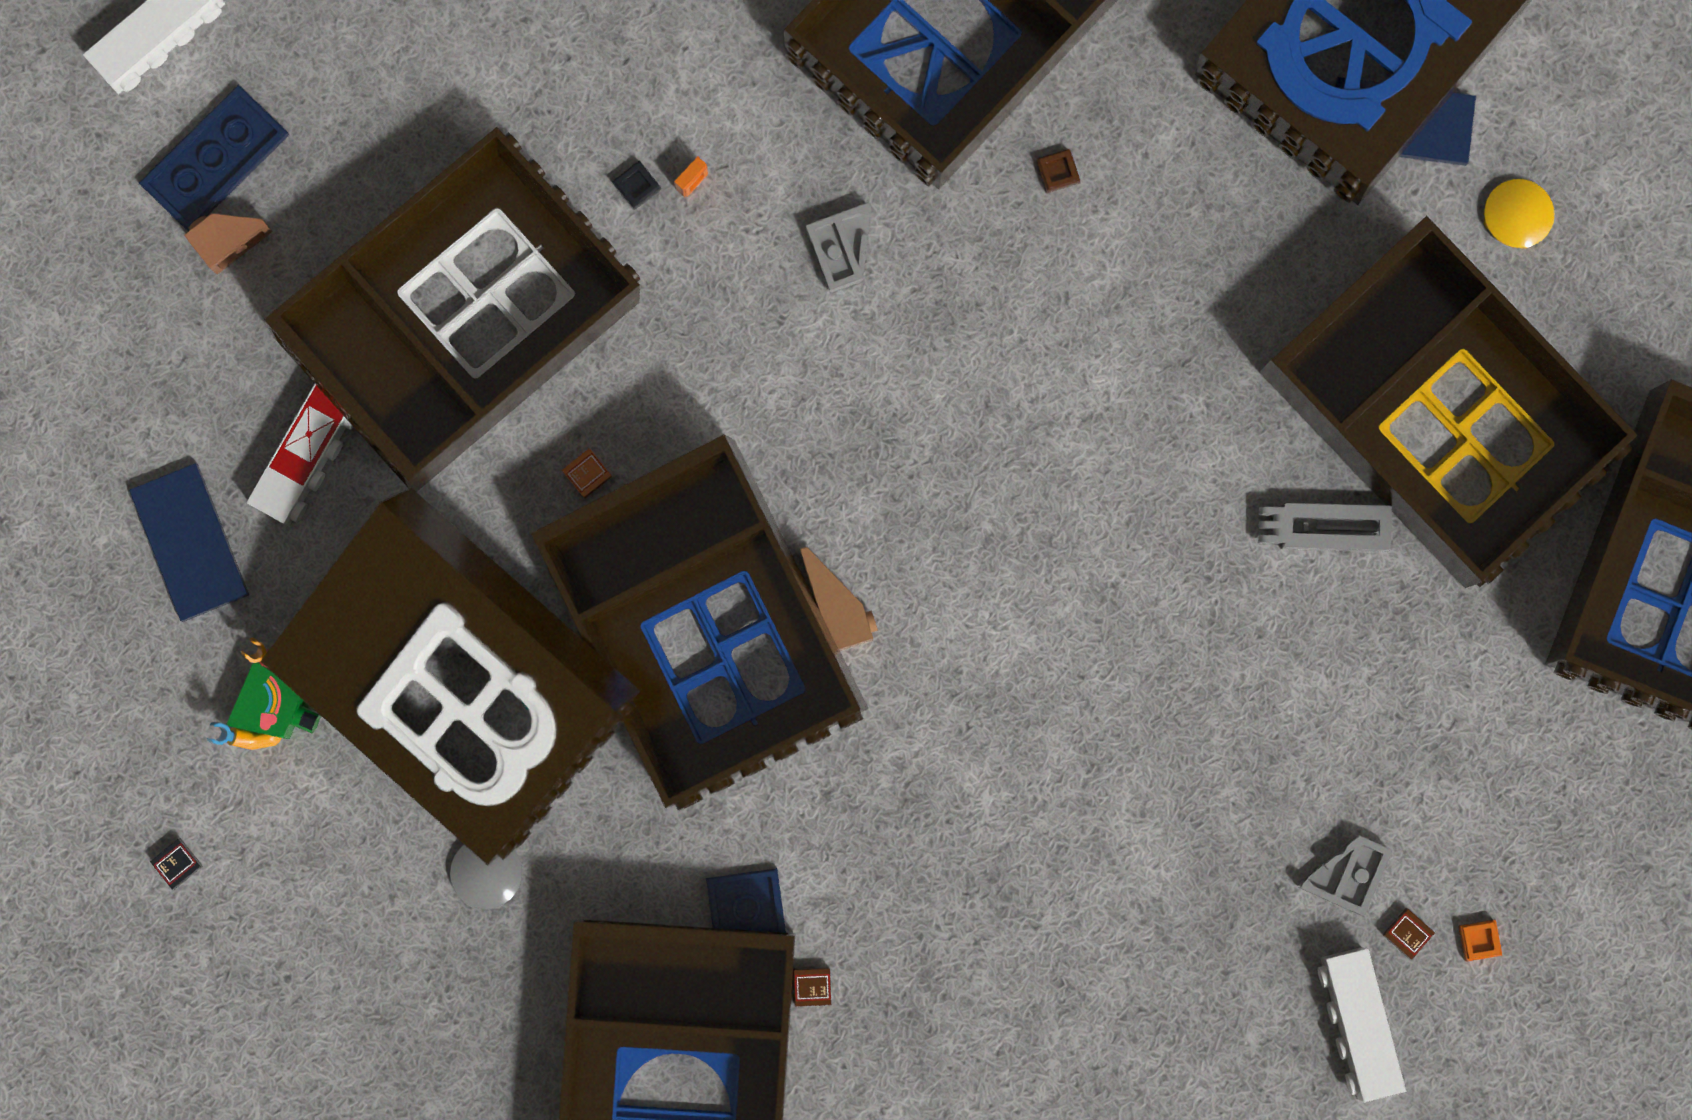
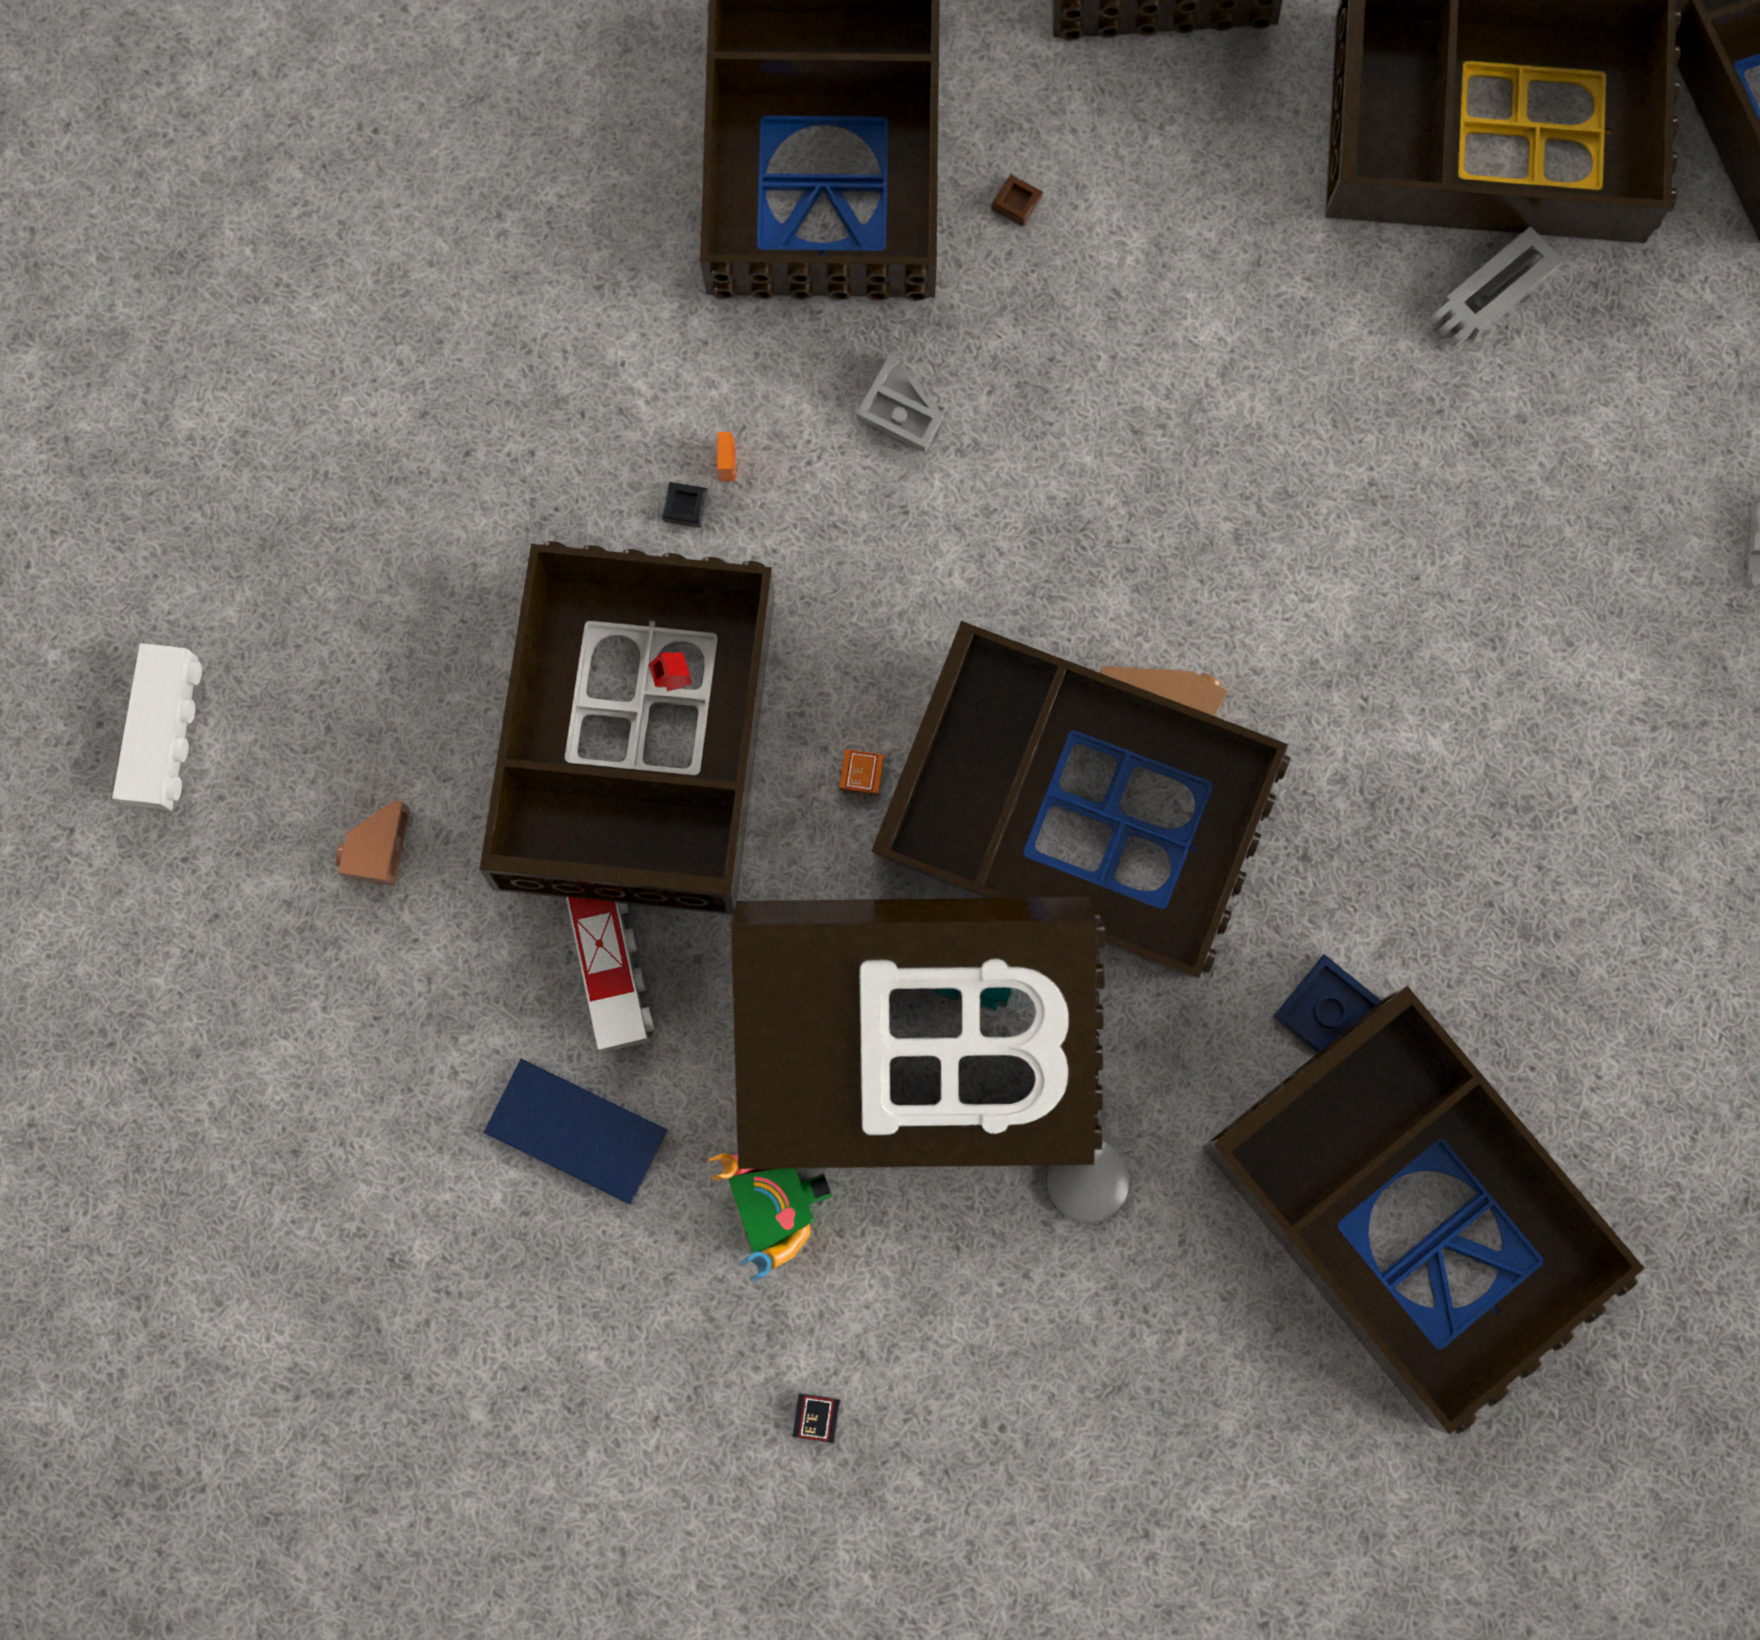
camera: 35 degrees left, 5 degrees down
(214, 158) = (304, 791): dark blue tile -> none
(504, 297) = (670, 671): none -> red piece
(812, 987) = (1452, 1020): reddish brown tile -> none

